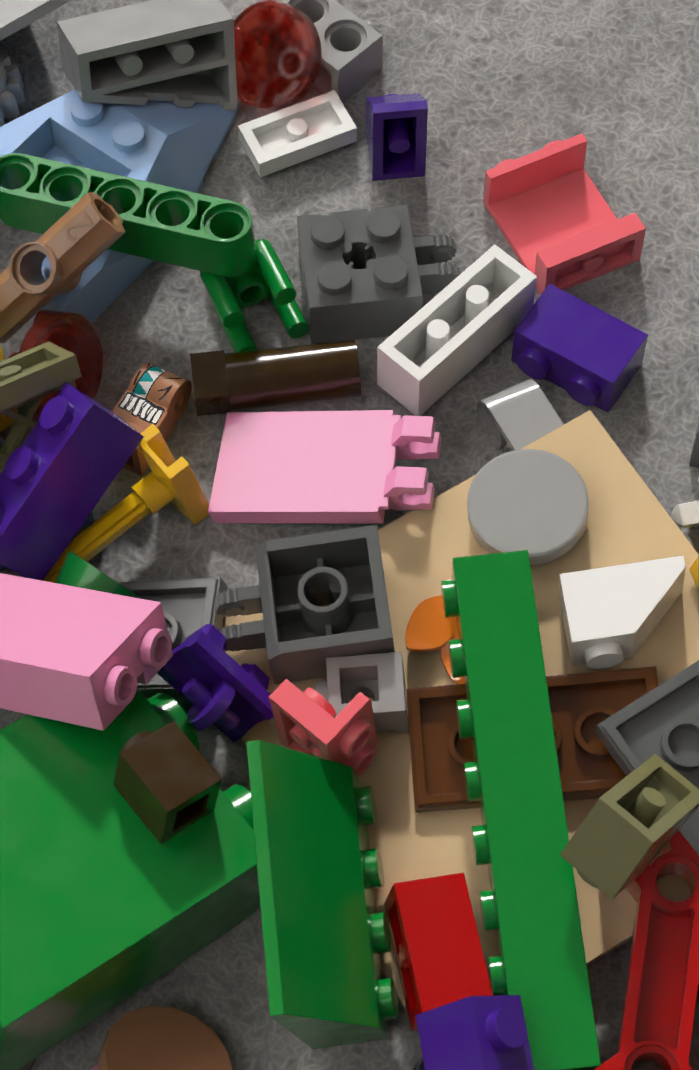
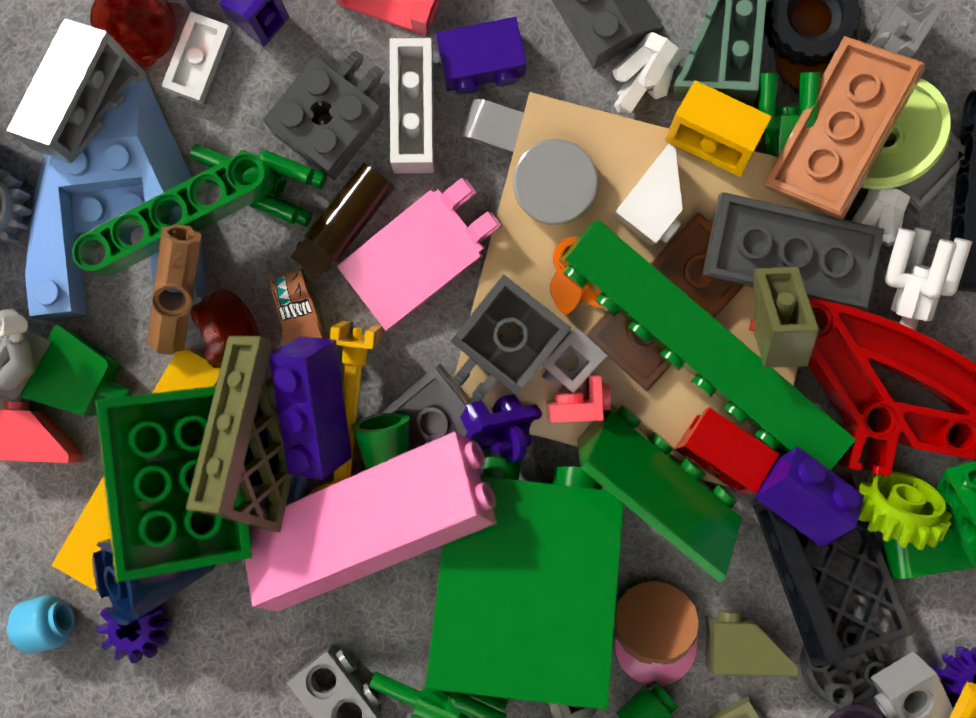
camera: 50 degrees left, 25 degrees up
(166, 781) = (548, 515): dark brown brick -> none

